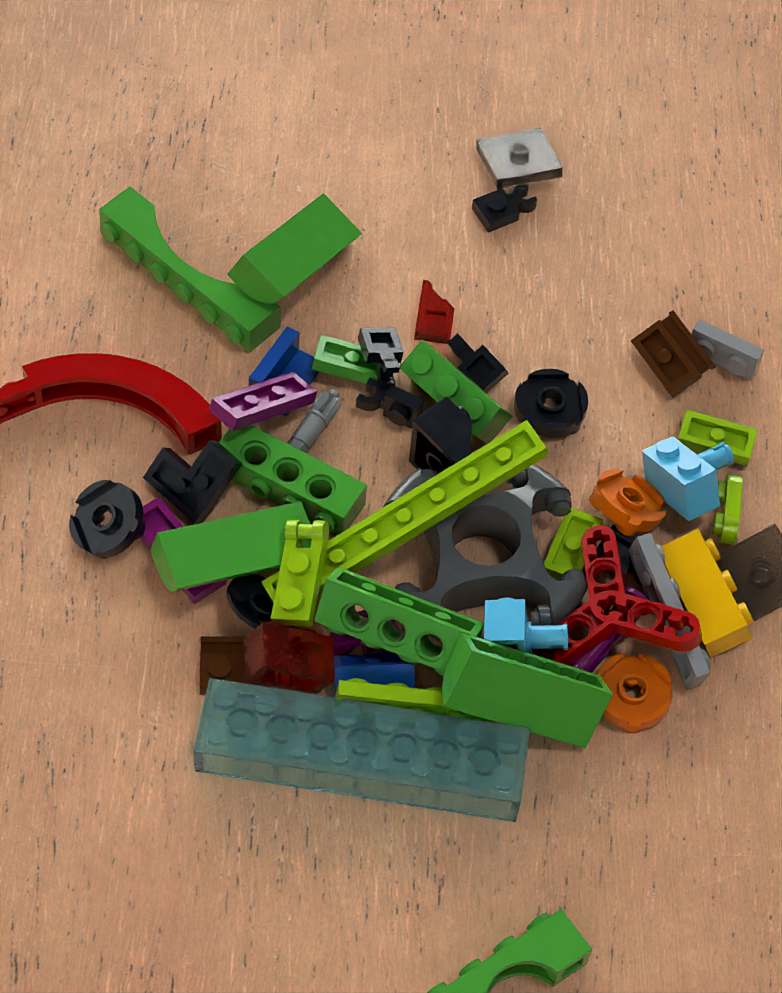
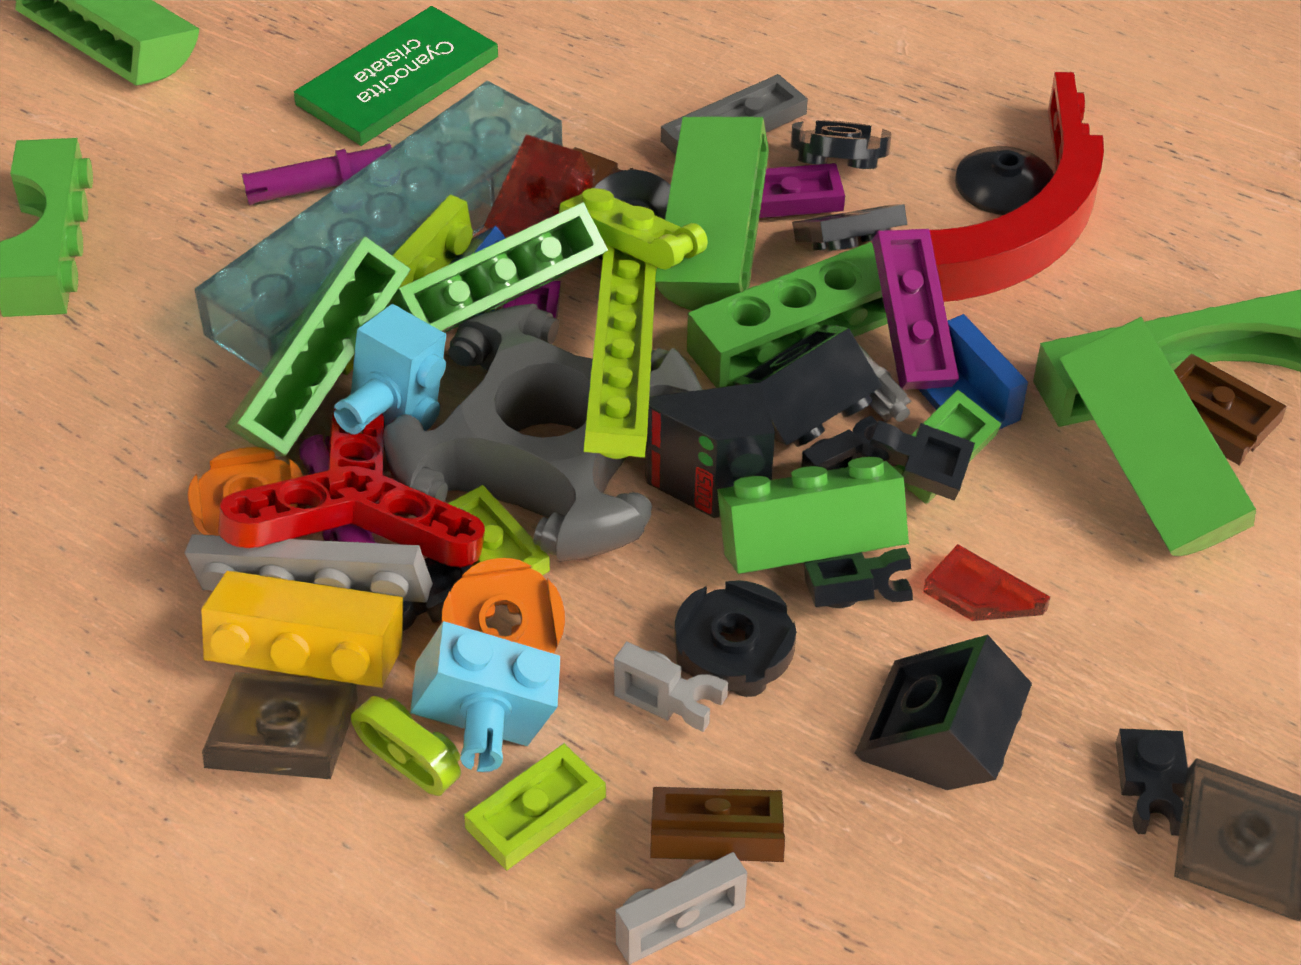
camera: 125 degrees right, 10 degrees down
(66, 443) = (1001, 178): none -> black dish
(108, 603) = (771, 99): none -> dark grey plate
(180, 862) = (395, 75): none -> green tile
(225, 245) = (1229, 407): none -> reddish brown plate
(295, 806) = (308, 175): none -> magenta pin
(354, 436) = (814, 383): none -> black slope
(538, 293) = (947, 715): none -> black slope
(610, 420) = (657, 686): none -> light grey plate

